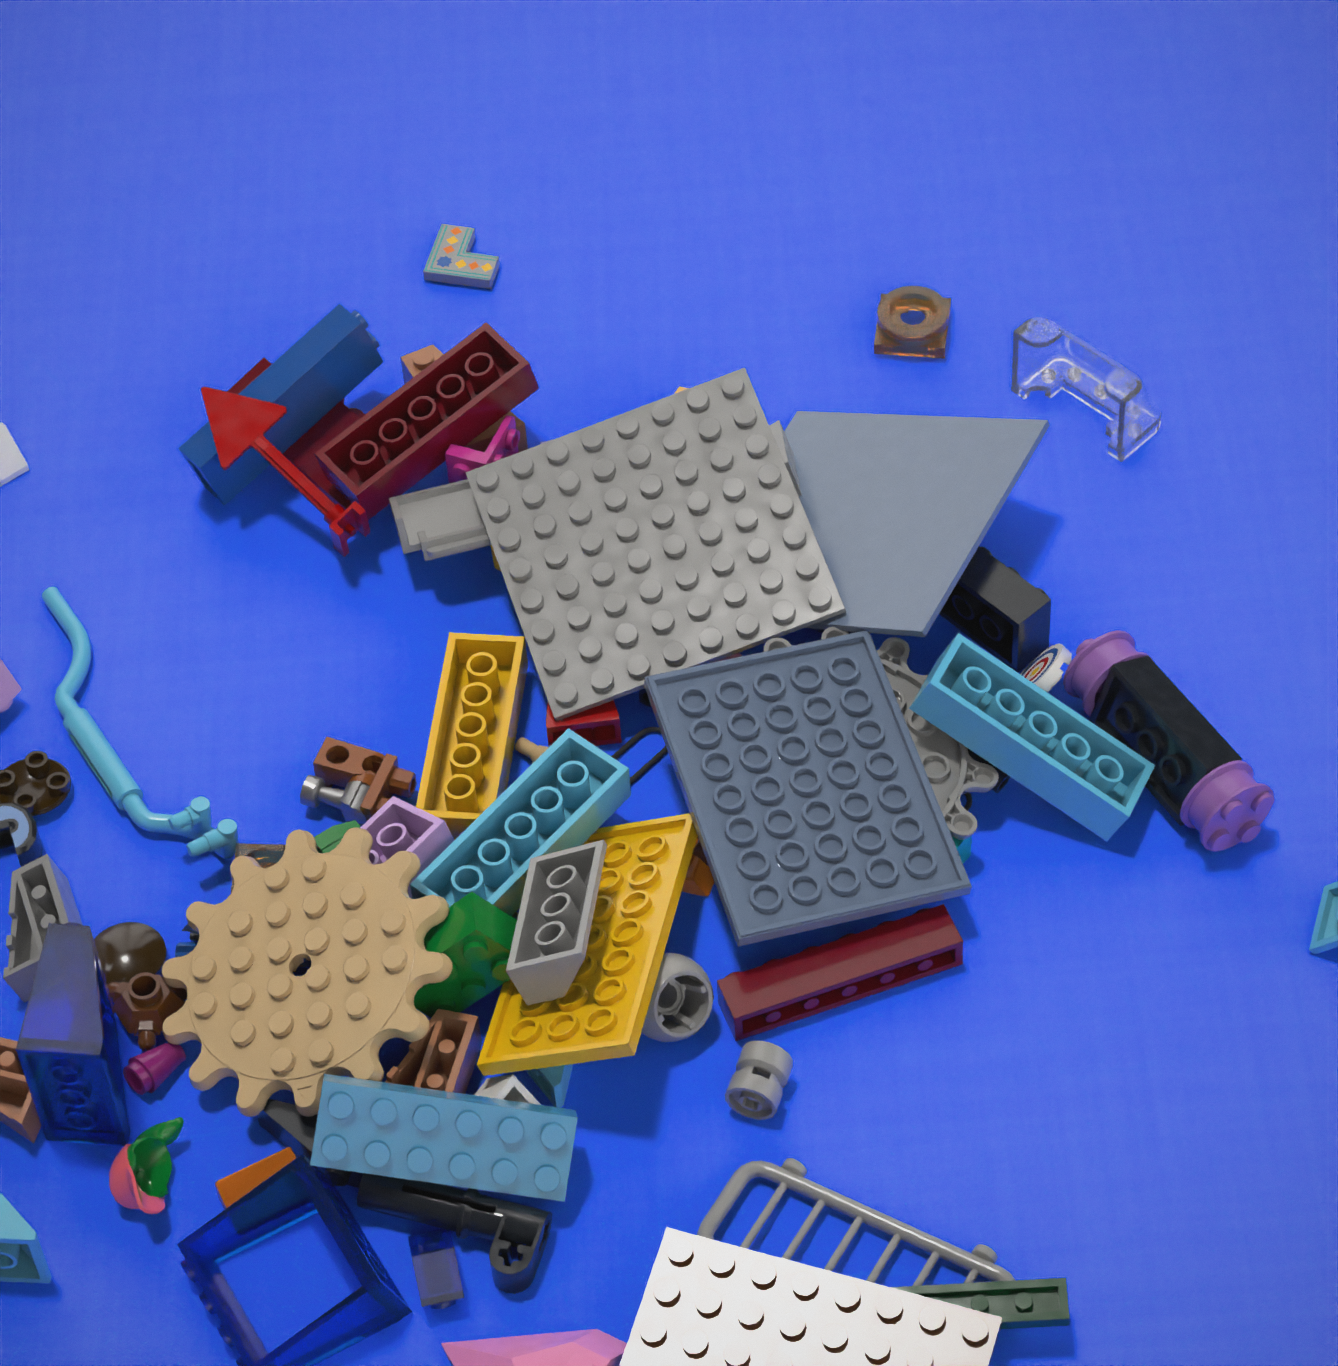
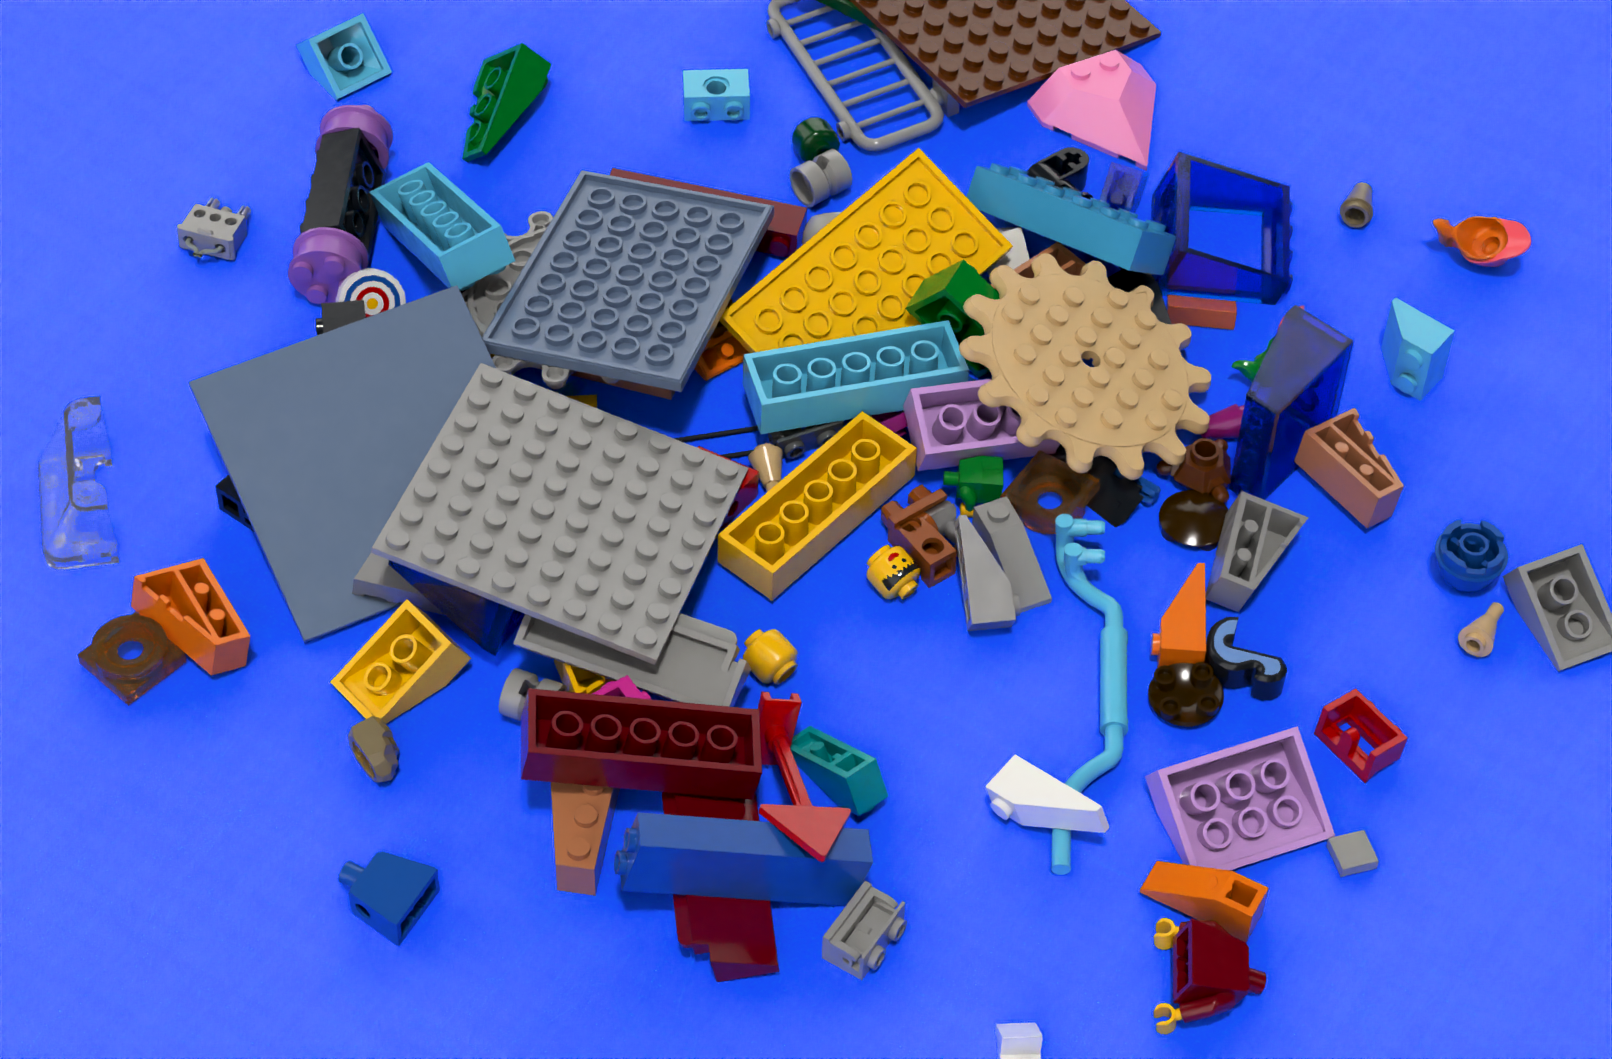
camera: 150 degrees left, 0 degrees up
(67, 833) = (1183, 624): none -> orange slope
(88, 608) = (1041, 800): none -> white slope
(165, 465) = (864, 931): none -> light grey hinge
(269, 749) = (985, 587): none -> light grey slope
(271, 809) = (1009, 544): none -> light grey slope
(285, 552) = (839, 770): none -> teal slope
(363, 727) = (893, 572): none -> yellow head
(409, 602) = (770, 656): none -> yellow head
(455, 264) = (442, 996): light grey tile -> none
(549, 287) = (390, 893): none -> blue torso
(555, 921) = (886, 265): light grey slope -> none
(657, 363) = (374, 748): none -> dark tan rock
(804, 1126) = (813, 138): none -> dark green head
(887, 359) = (194, 614): none -> orange wedge
(949, 1137) = (716, 95): none -> medium azure brick
(1157, 975) = (503, 92): none -> green wedge
(1264, 673) = (213, 230): none -> light grey piece

